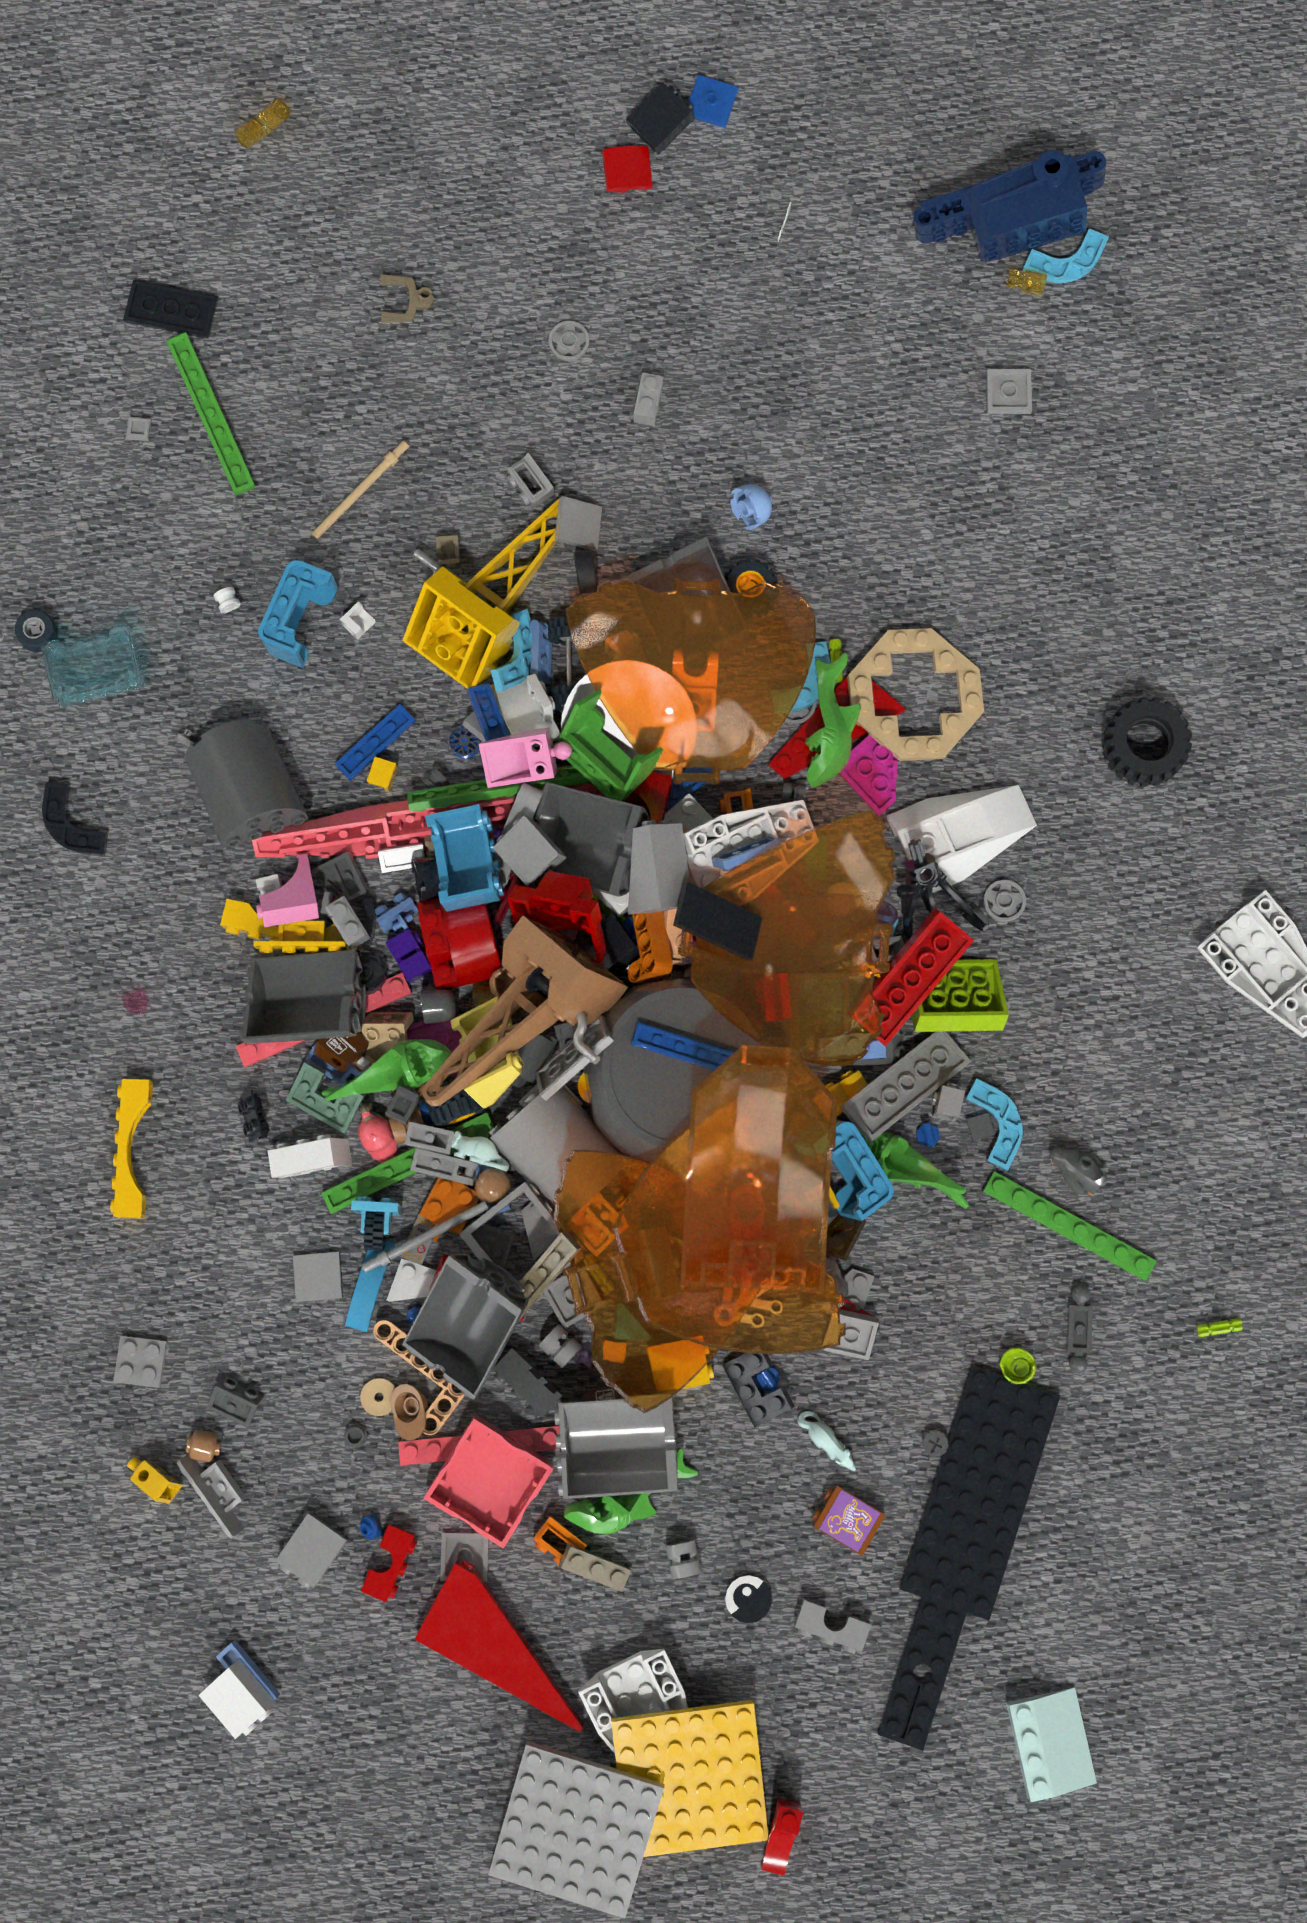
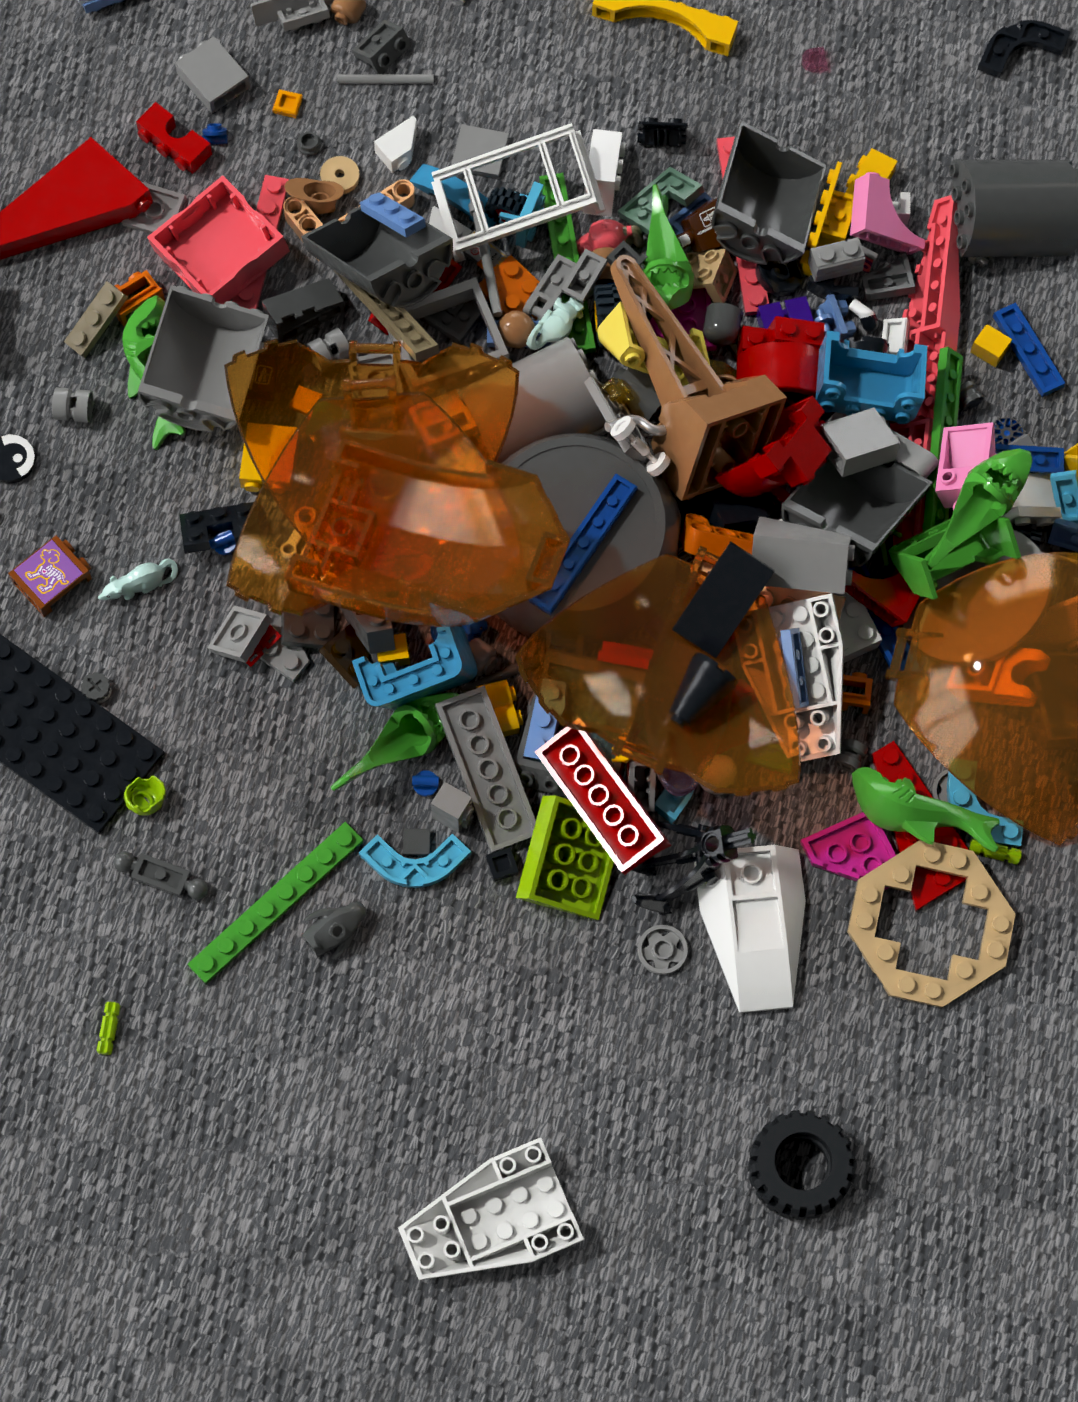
camera: 105 degrees right, 10 degrees down
(267, 1388) = (385, 78): none -> light grey bar
(318, 1470) = (287, 103): none -> light orange tile
(336, 1351) = (397, 145): none -> white slope
(377, 1174) = (528, 221): none -> white piece
(386, 886) = (866, 315): none -> arm
(429, 1322) = (392, 214): none -> medium blue plate
(538, 1072) = (618, 390): none -> clear yellow plate
(558, 729) = (984, 497): none -> bright green piece
(598, 1043) = (623, 428): none -> white wheel
(801, 919) = (700, 690): none -> black cone
(977, 1050) = (502, 864): none -> black plate

